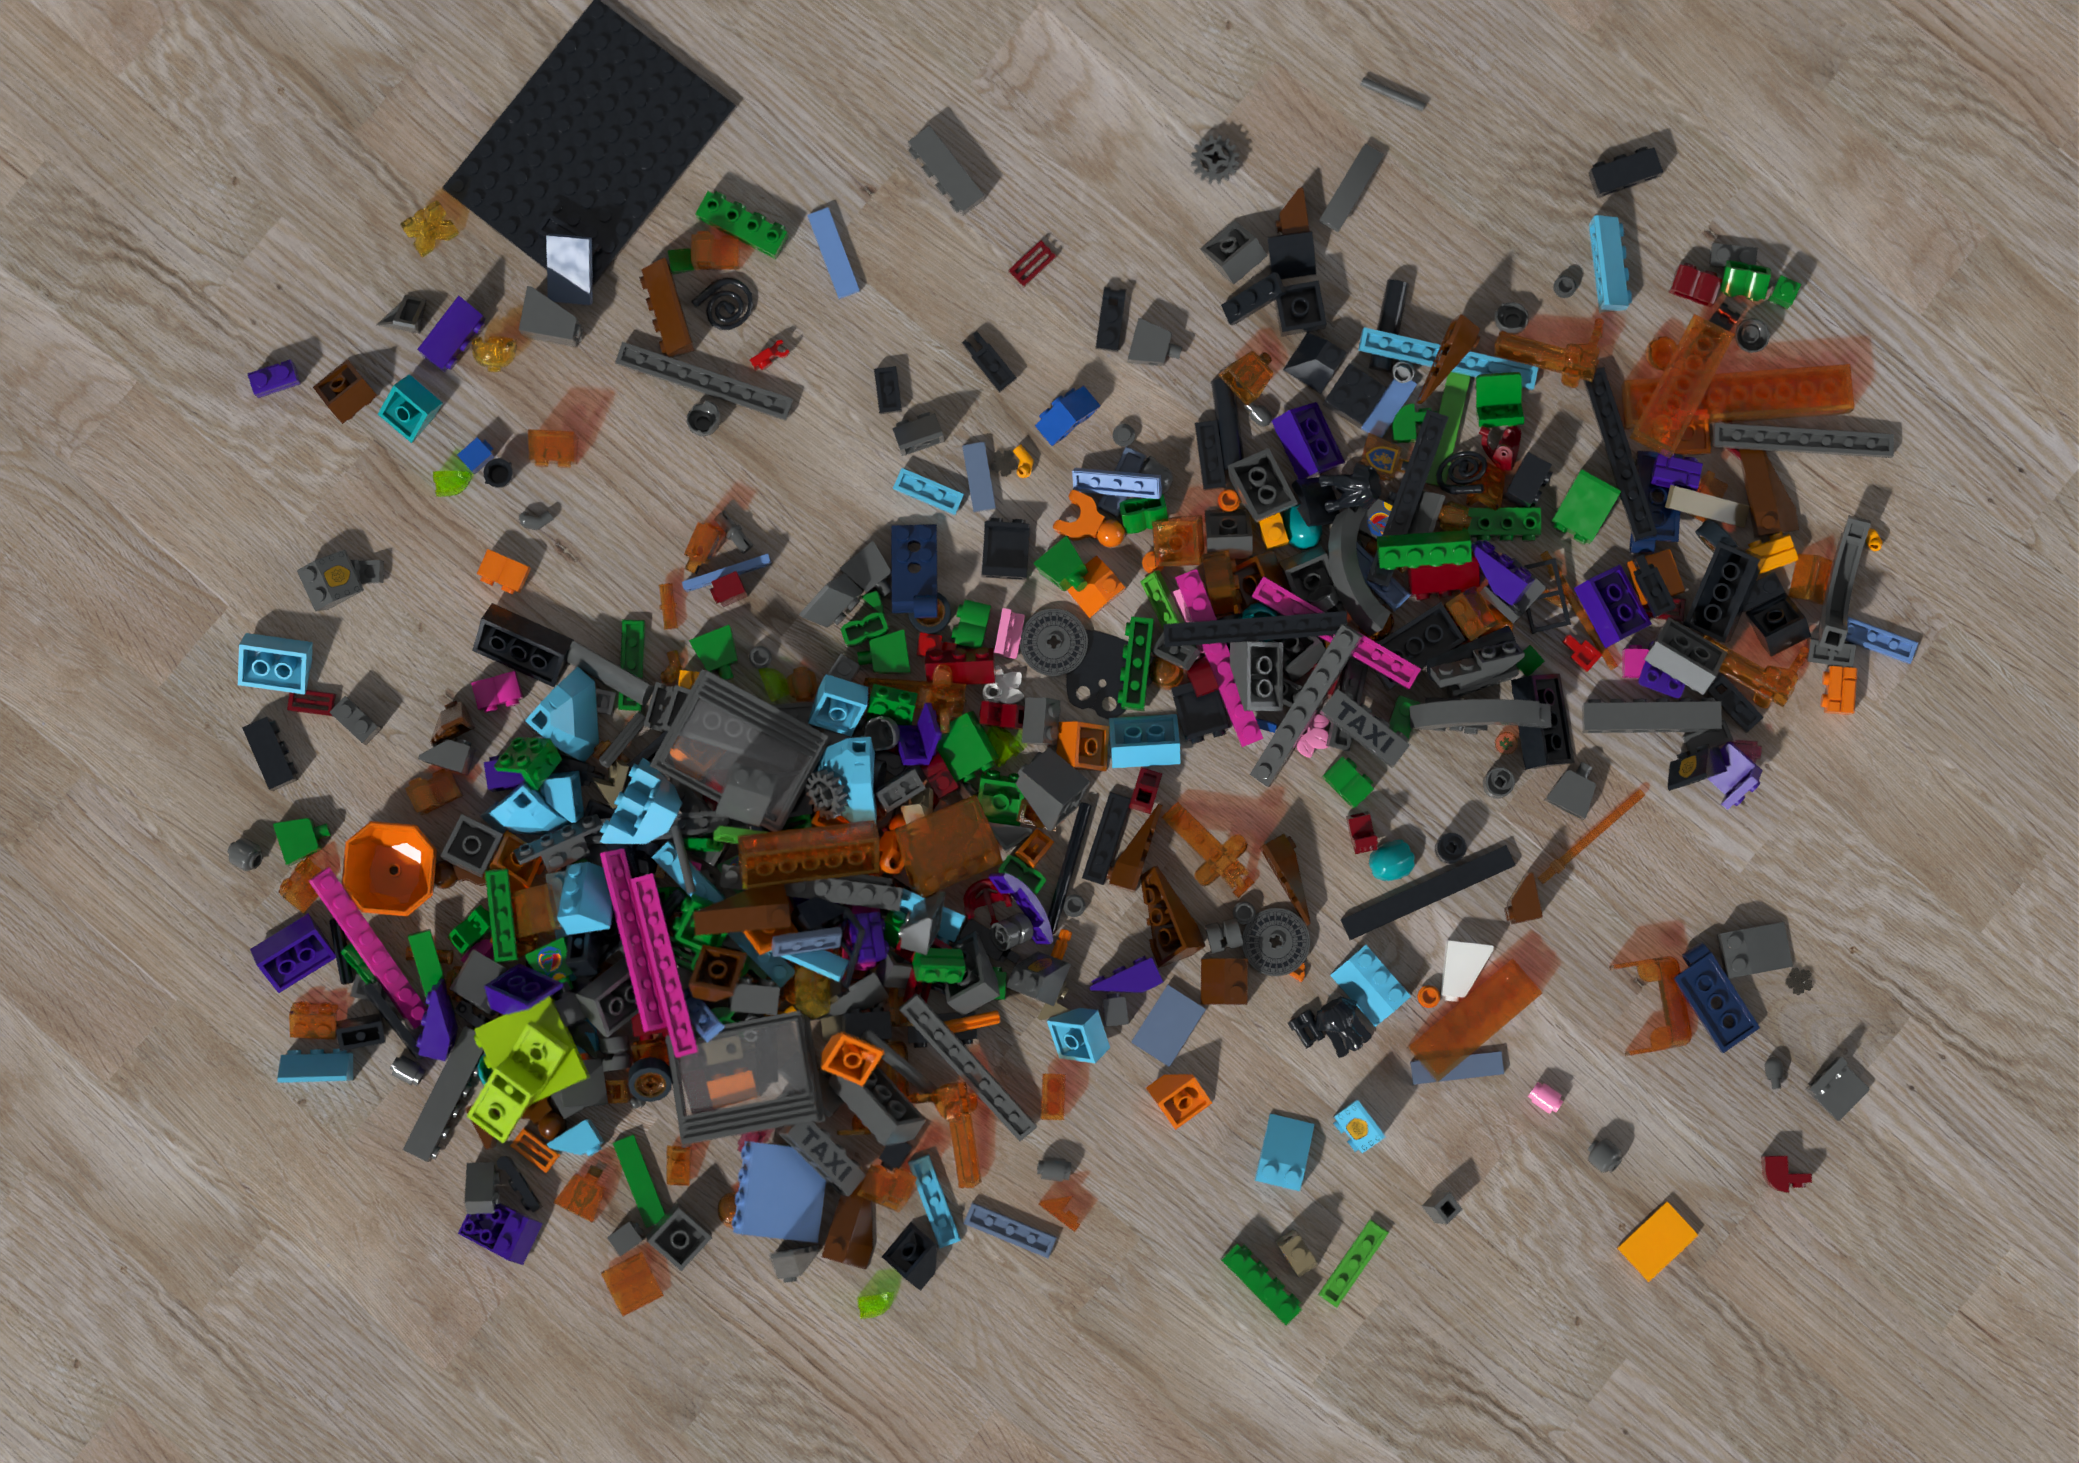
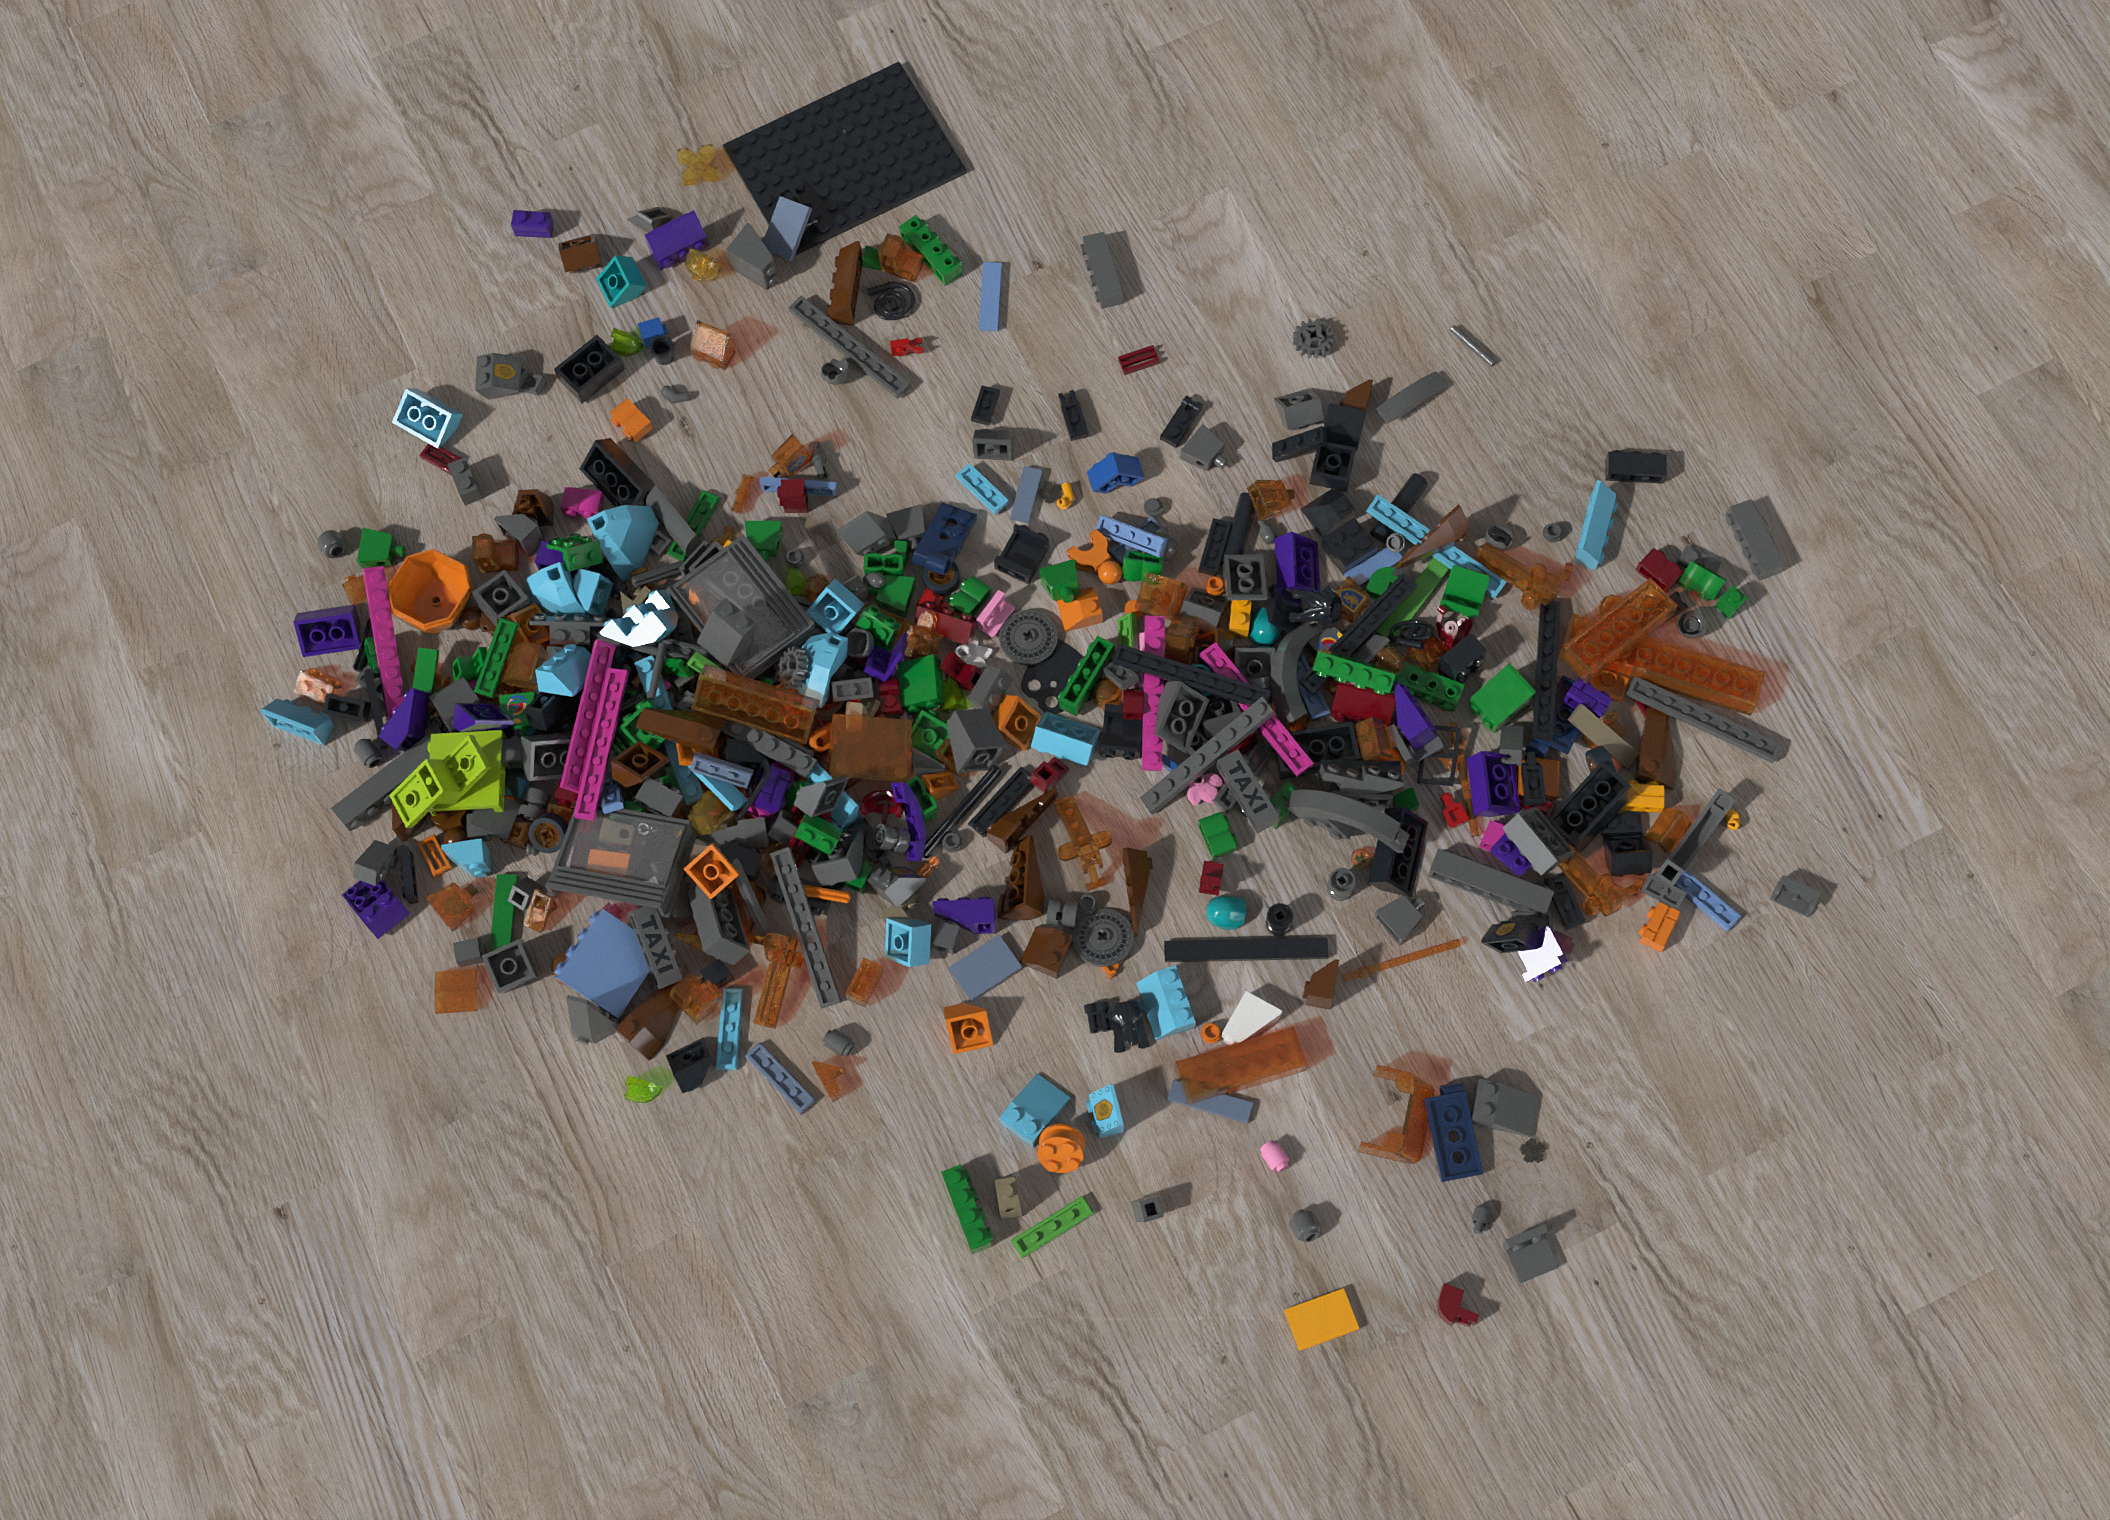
camera: 25 degrees right, 15 degrees down
(270, 753) = (389, 480): black brick -> none
(428, 531) = (589, 369): none -> black brick
(654, 1152) = (522, 893): none -> dark grey brick
(863, 651) = (874, 579): none -> dark grey cylinder
(1330, 1183) = (1061, 1148): none -> orange wheel
(1615, 554) = (1511, 743): none -> dark grey hinge
(1783, 207) = (1754, 540): none -> dark grey brick
(1965, 598) = (1795, 896): none -> dark grey hinge

